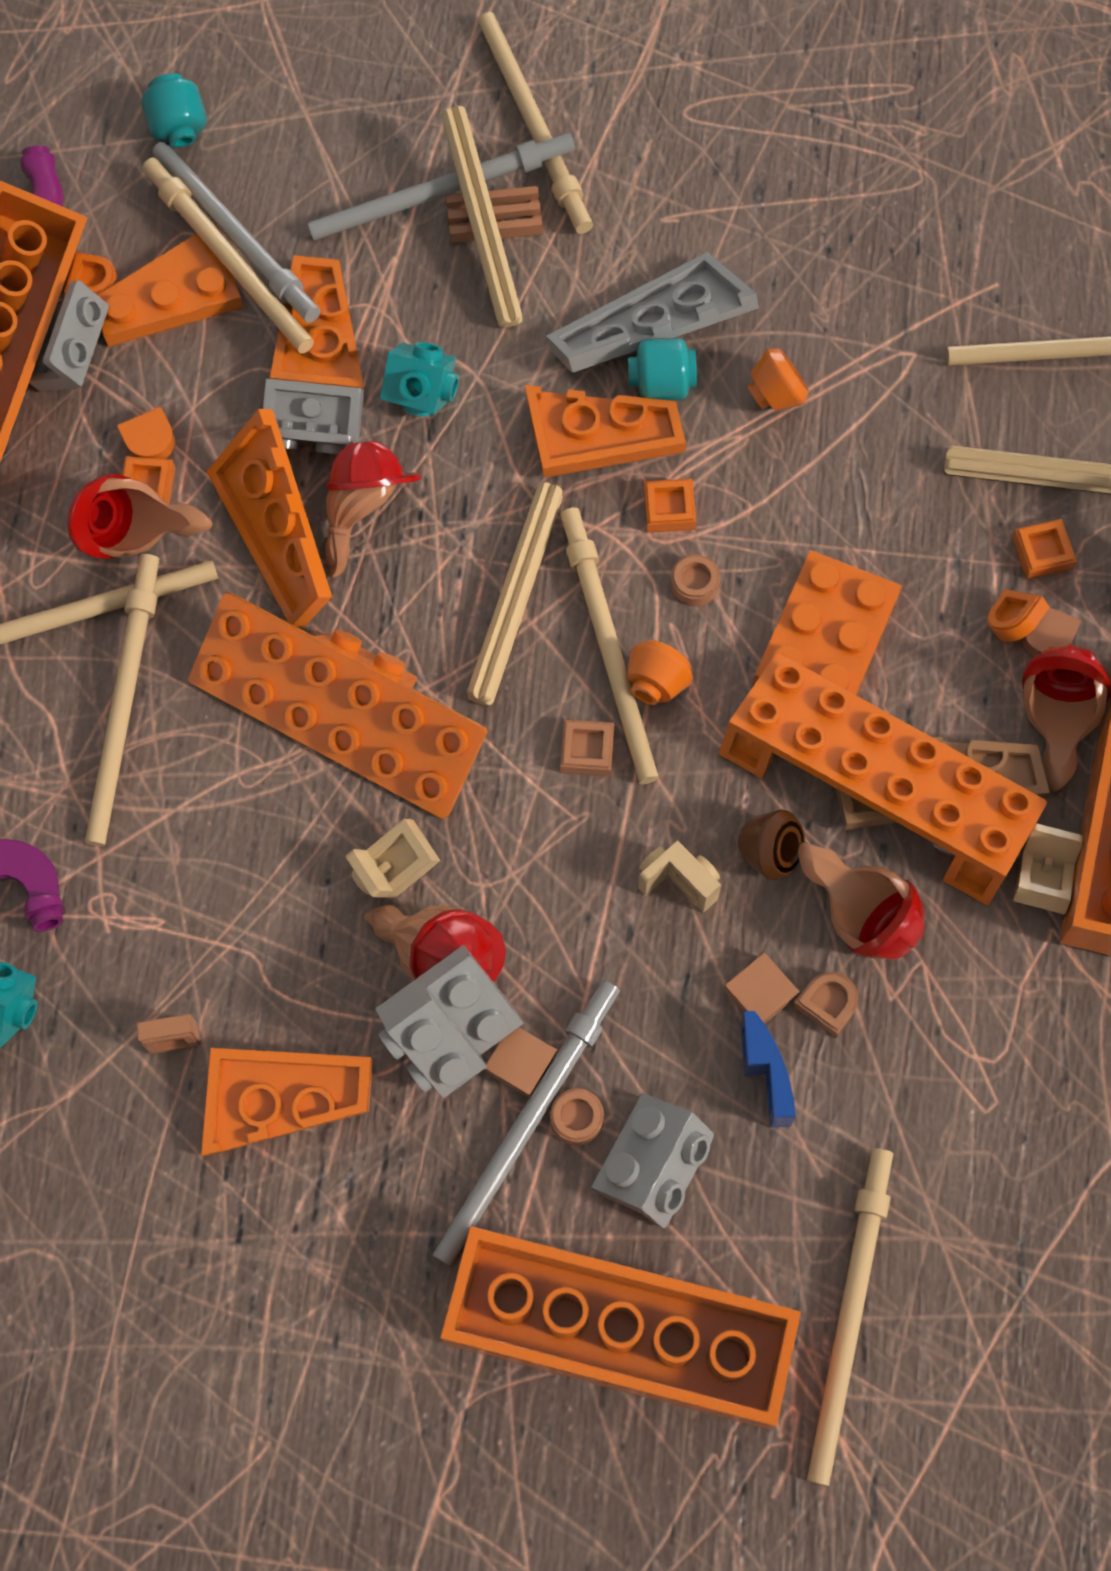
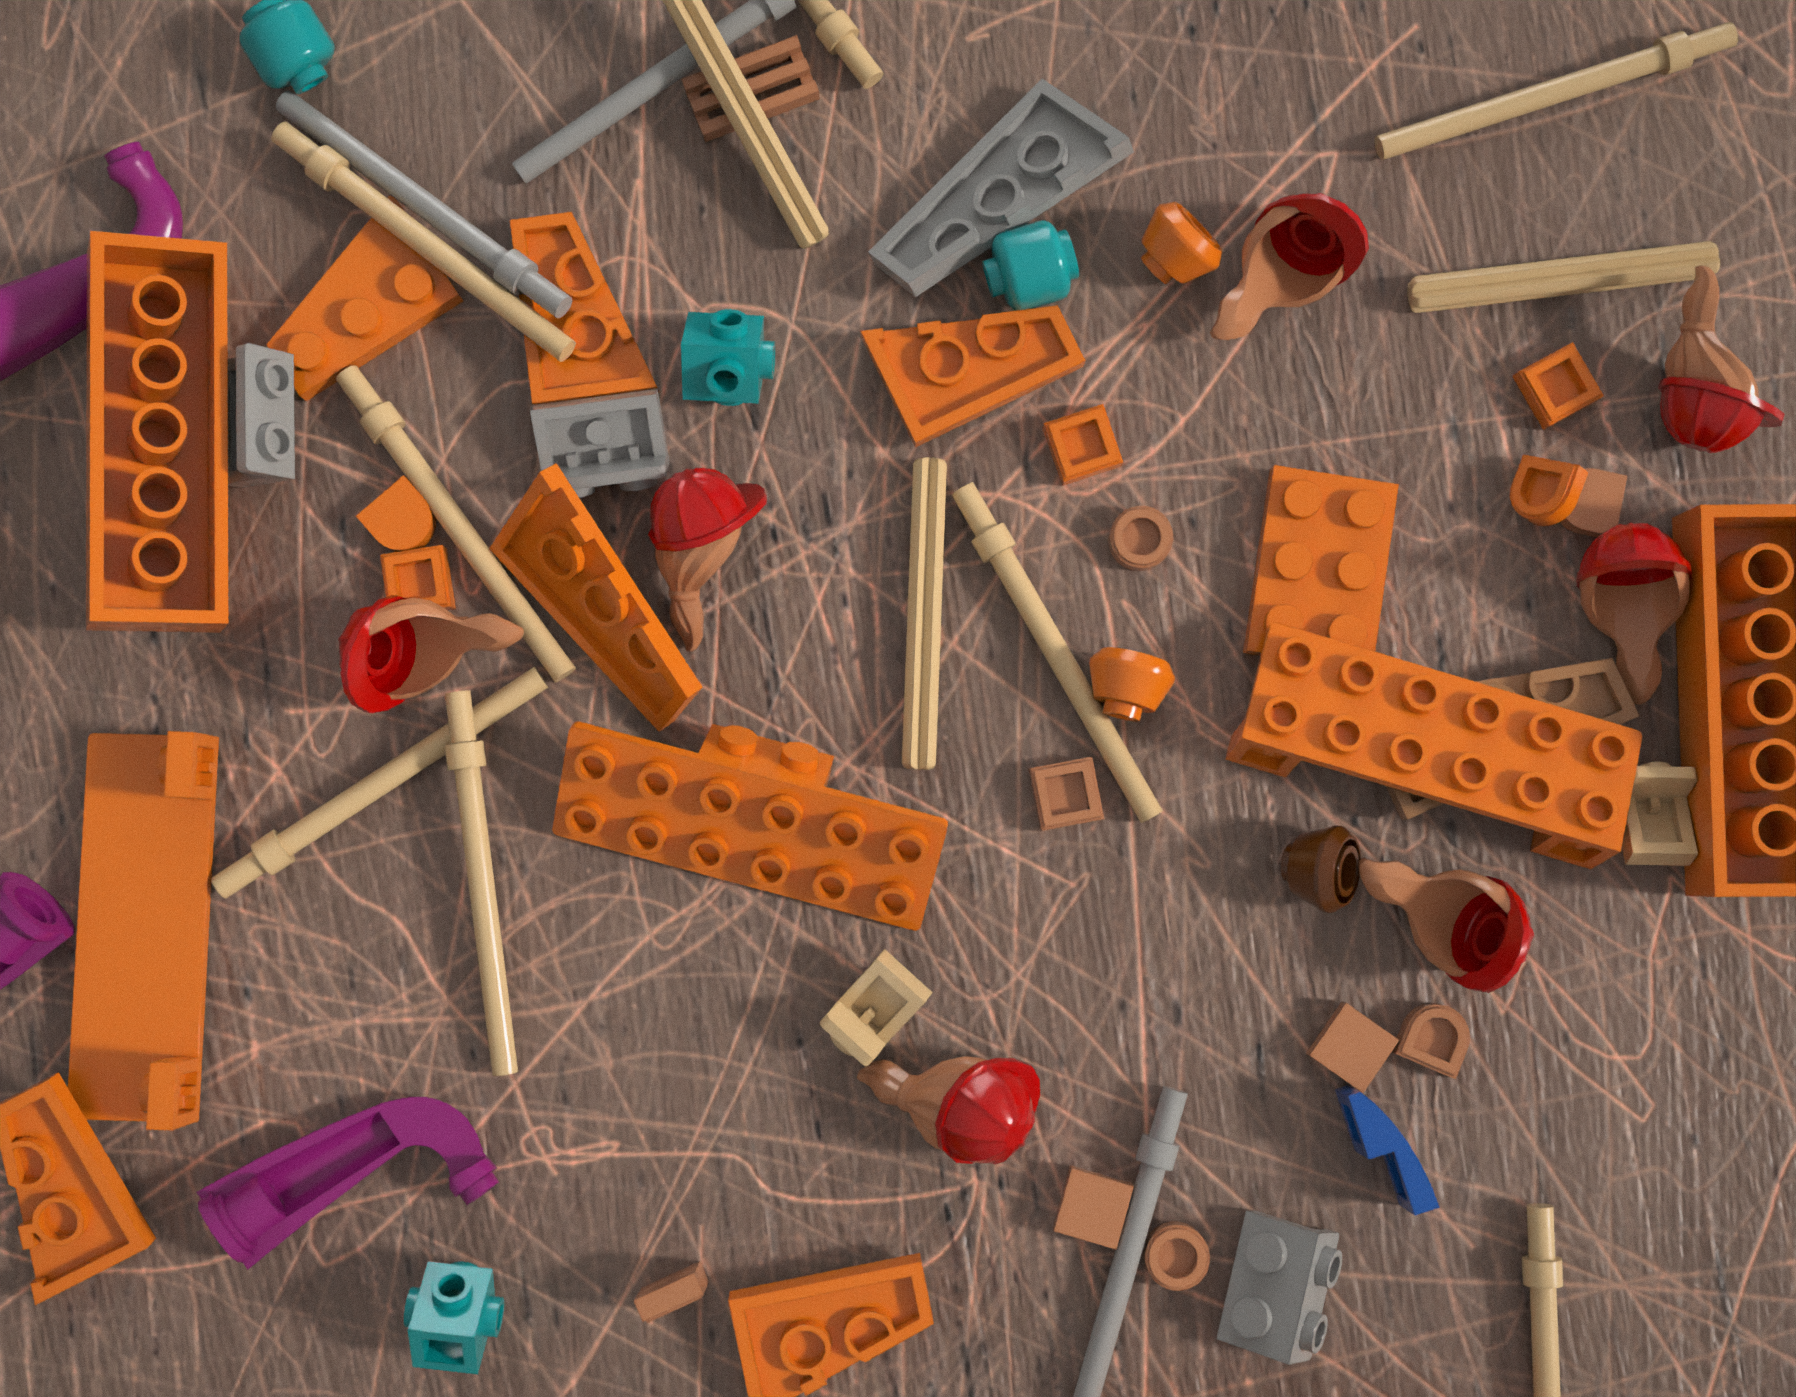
camera: 15 degrees left, 15 degrees up
(92, 271) = (254, 312): orange tile -> none
(159, 374) = (386, 426): none -> tan bar
(447, 1022) = (999, 1207): light grey plate -> none
(691, 875) = (1240, 931): tan bracket -> none
(858, 407) = (1292, 259): none -> piece

